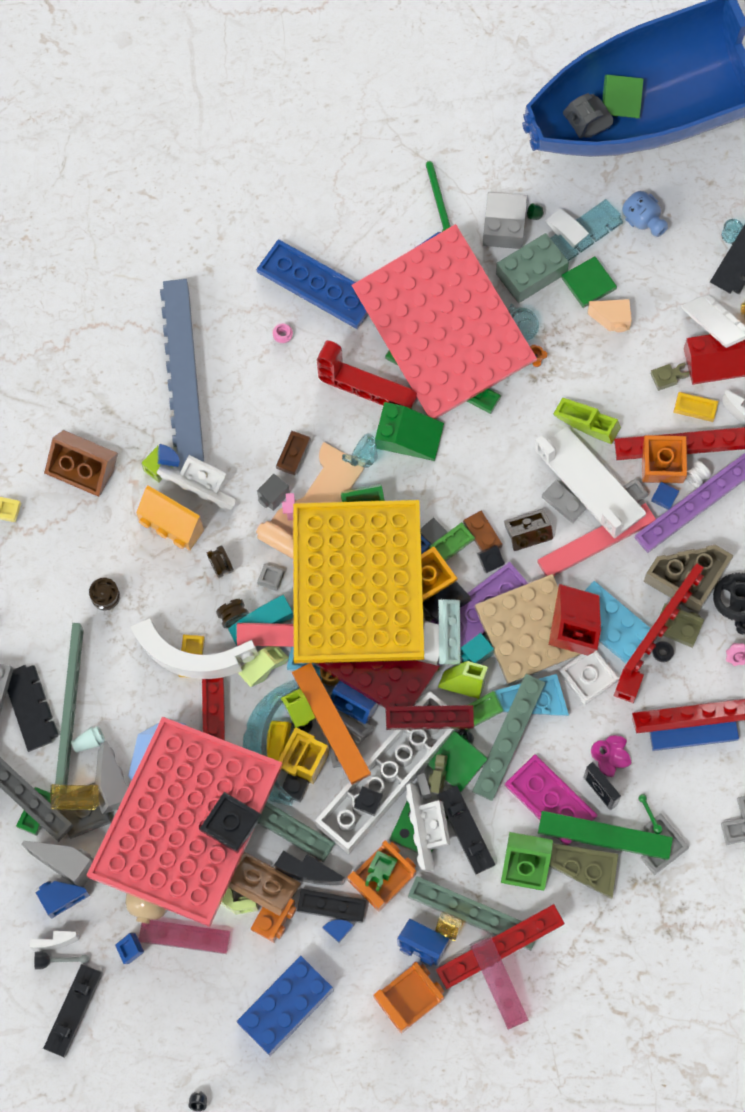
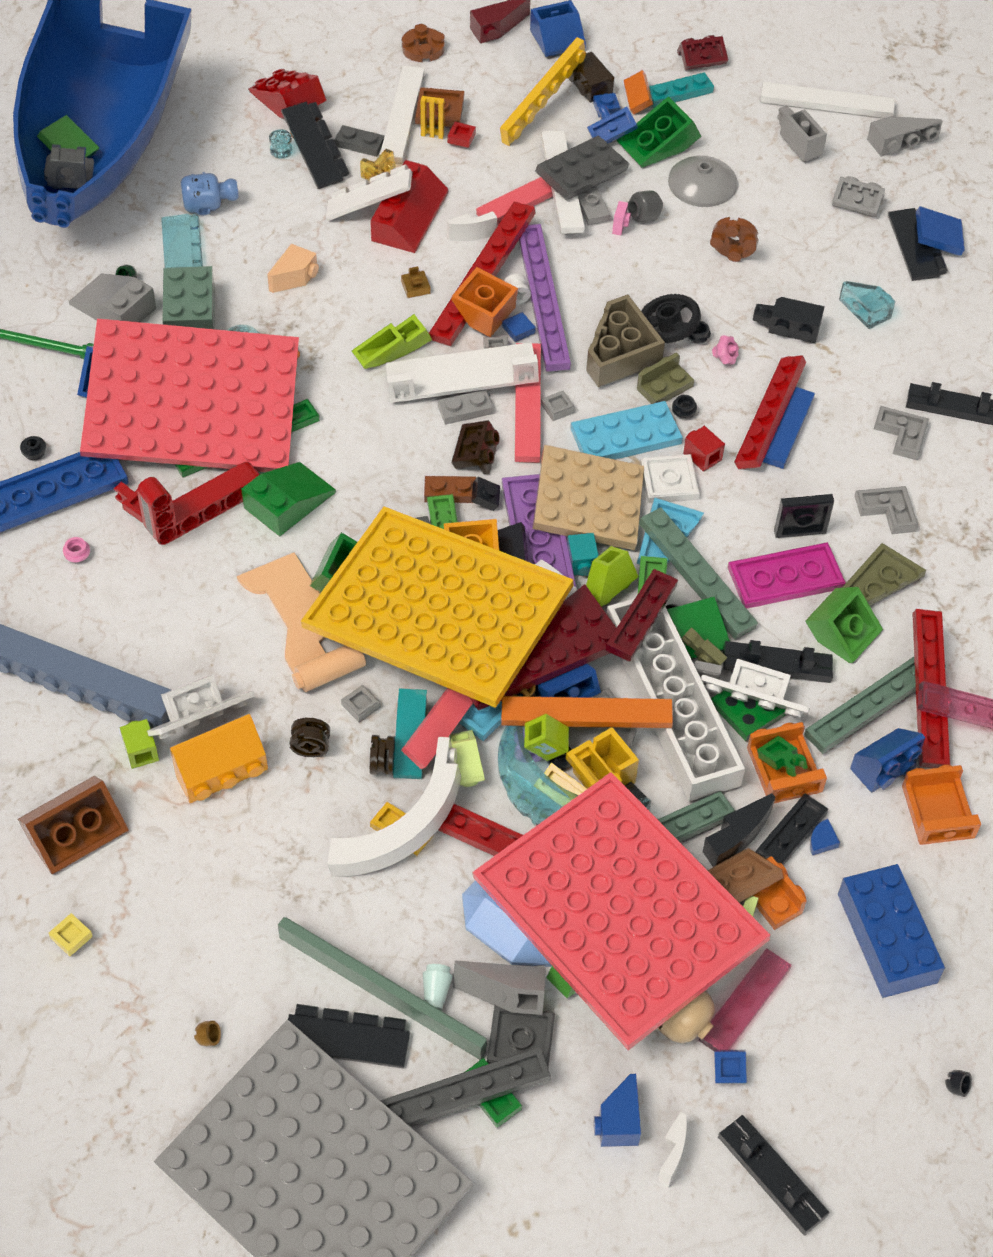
camera: 65 degrees left, 15 degrees down
(42, 959) = (690, 1177): hinge -> none
(64, 860) = (581, 1084): light grey slope -> none
(74, 797) = (506, 1027): clear yellow hinge -> none
(104, 594) = (260, 881): dark brown wheel -> none
(167, 456) = (143, 719): blue tile -> none
(230, 822) = (655, 854): black tile -> none
(272, 492) = (262, 647): dark grey brick -> none
(288, 505) = (294, 637): bright pink plate -> none
(293, 453) = (229, 608): reddish brown plate -> none
(345, 342) = (129, 500): none -> red plate
(347, 258) = (33, 447): none -> black plate
(364, 453) = (279, 539): clear light blue hat -> none
(368, 801) = (701, 719): black plate -> none
(448, 926) = (881, 722): clear yellow bracket -> none
(449, 631) = (550, 556): light aqua tile -> none
(567, 226) = (169, 253): white slope -> none
(576, 621) = (615, 447): red slope -> none
(589, 281) = (240, 272): green tile -> none
(605, 835) = (854, 544): green tile -> none
(607, 563) = (558, 405): none -> light grey tile
(614, 755) = (764, 500): dark pink plate -> none
(657, 828) = (873, 498): green hinge -> none
(658, 402) = (415, 283): none -> pearl gold tile
(659, 627) = (662, 374): red plate -> none
(667, 377) = (392, 265): olive plate -> none
(695, 406) = (441, 259): yellow tile -> none

